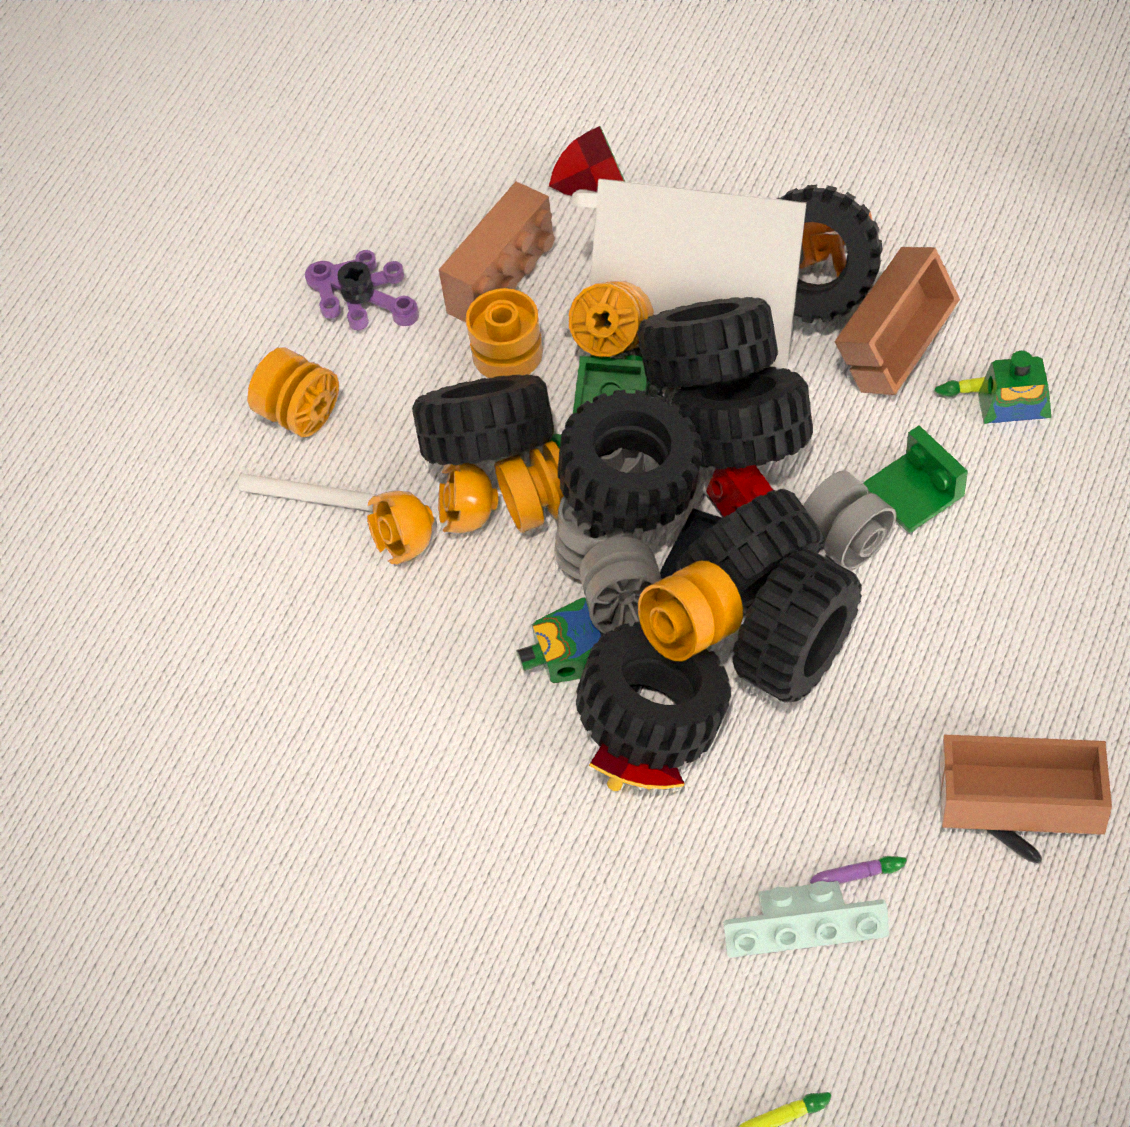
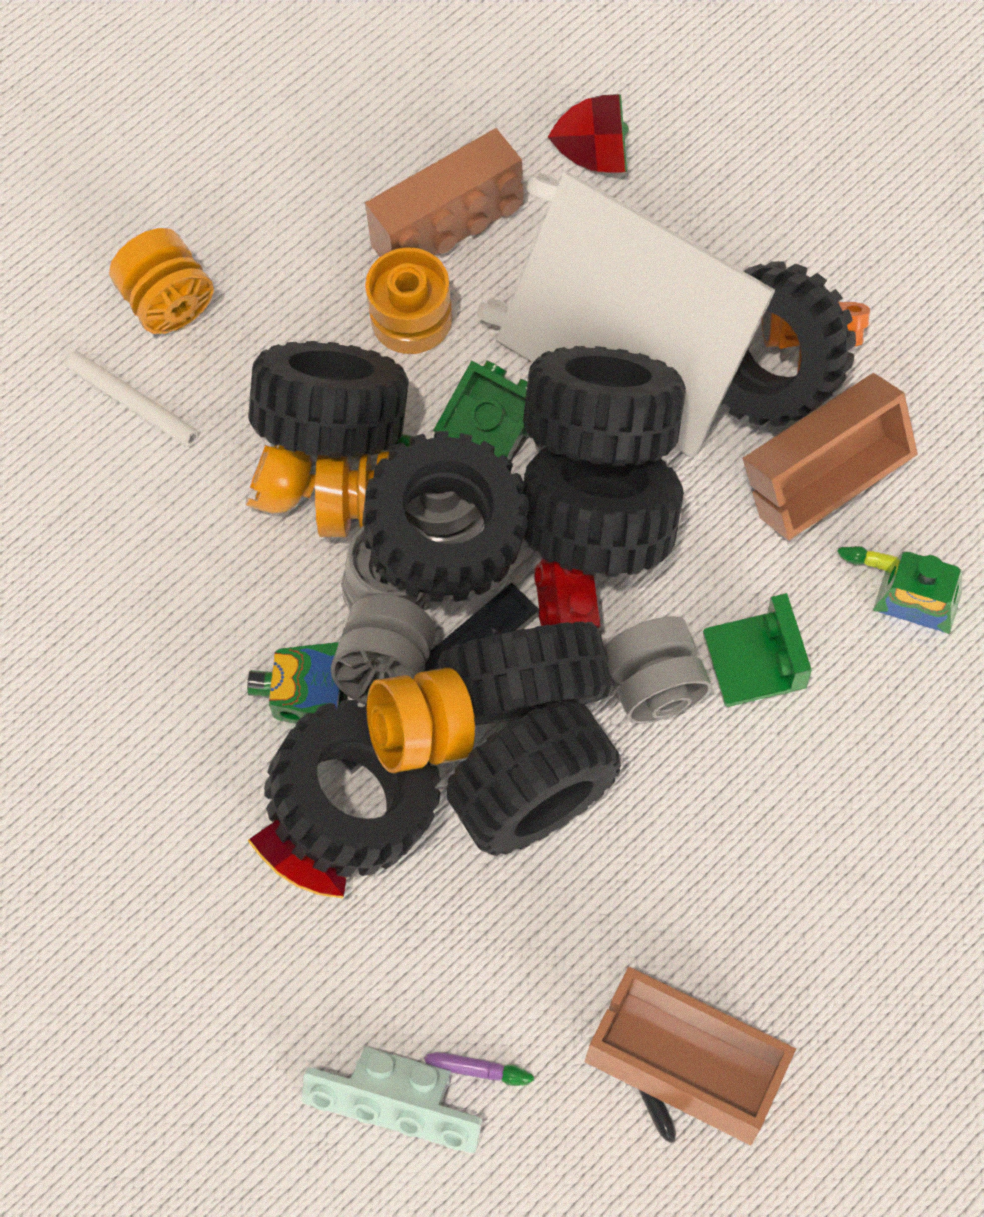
camera: 20 degrees right, 10 degrees up
(323, 277) = (291, 181): medium lavender plant -> none
(355, 282) = (293, 184): black wheel -> none
(400, 524) = (202, 478): light orange cylinder -> none
(627, 309) = (517, 327): light orange wheel -> none

